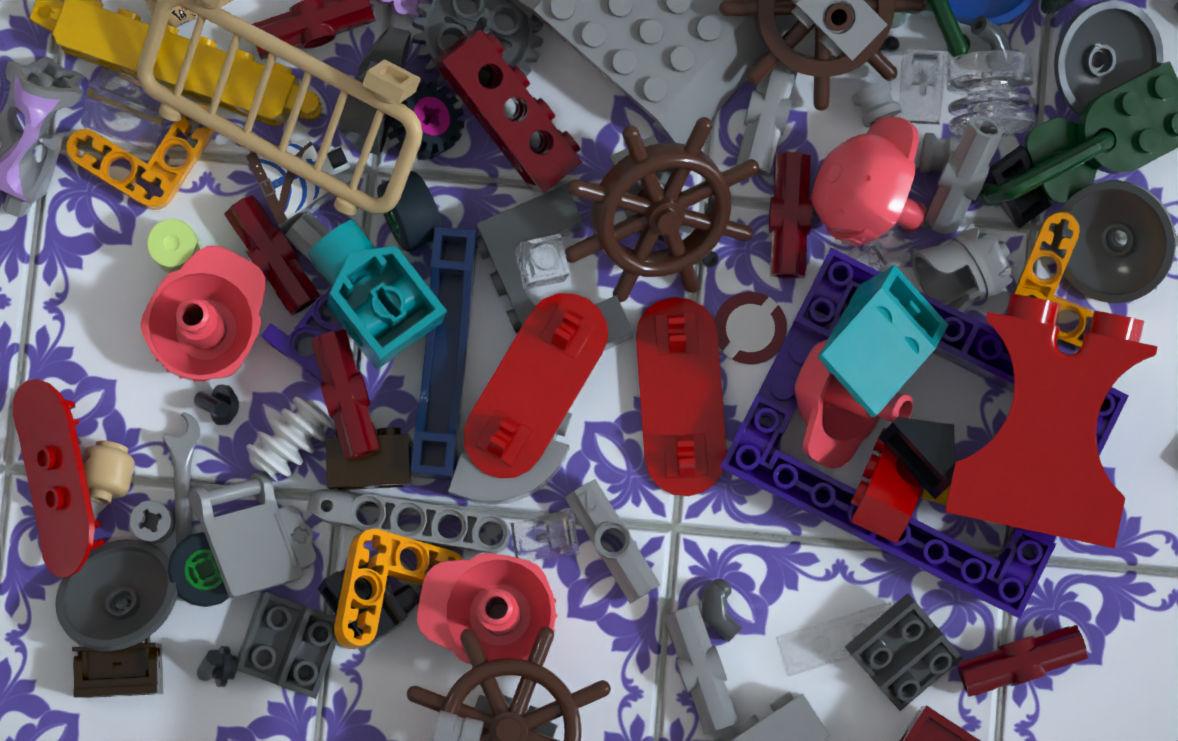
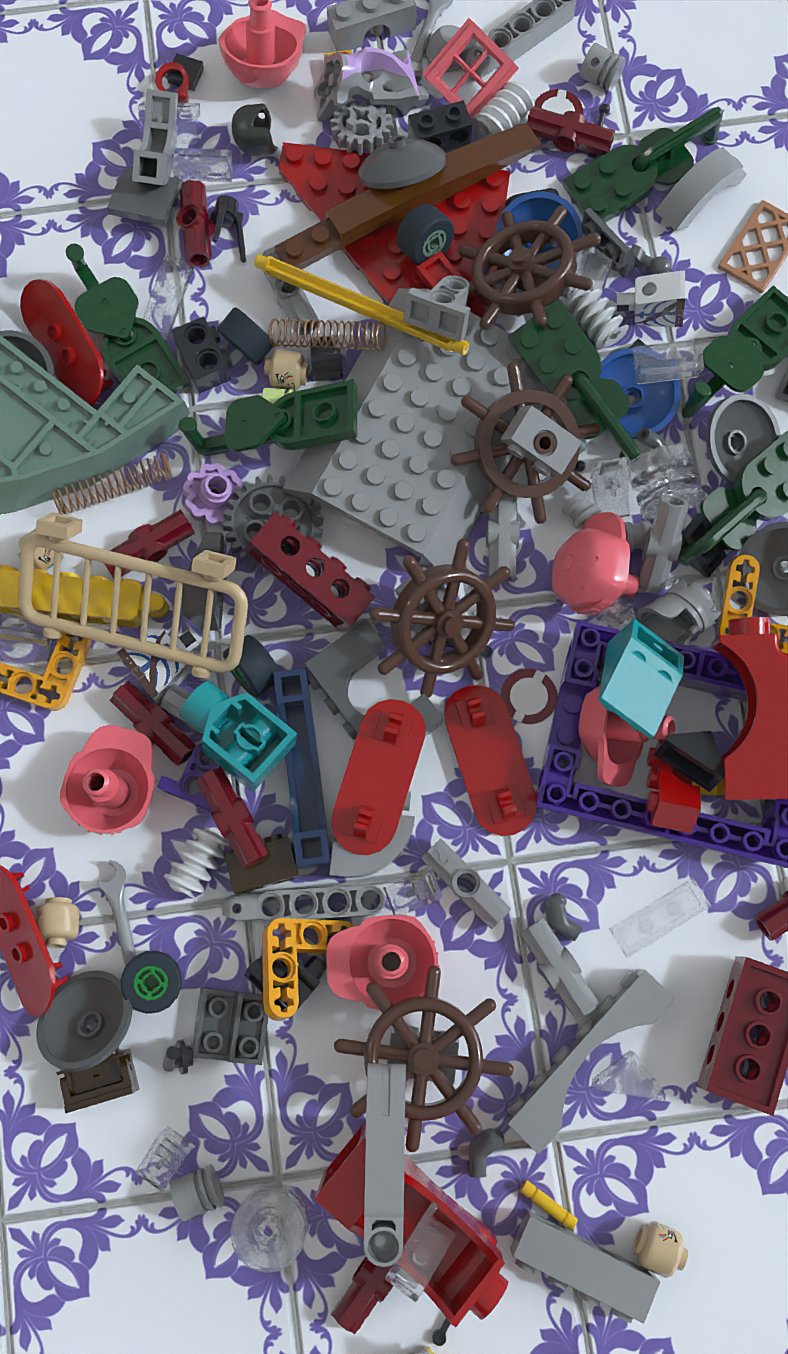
camera: 15 degrees left, 5 degrees down
(156, 528) = (108, 954): light grey wheel -> none
(172, 244) = (73, 731): yellowish green piece -> none
(221, 404) = (138, 847): black plate -> none
(257, 544) = (188, 952): light grey piece -> none
(443, 127) = (262, 595): black wheel -> none
(542, 261) = (362, 679): clear brick -> none
(790, 215) = (538, 605): dark red piece -> none
(903, 652) = (712, 917): dark grey slope -> none

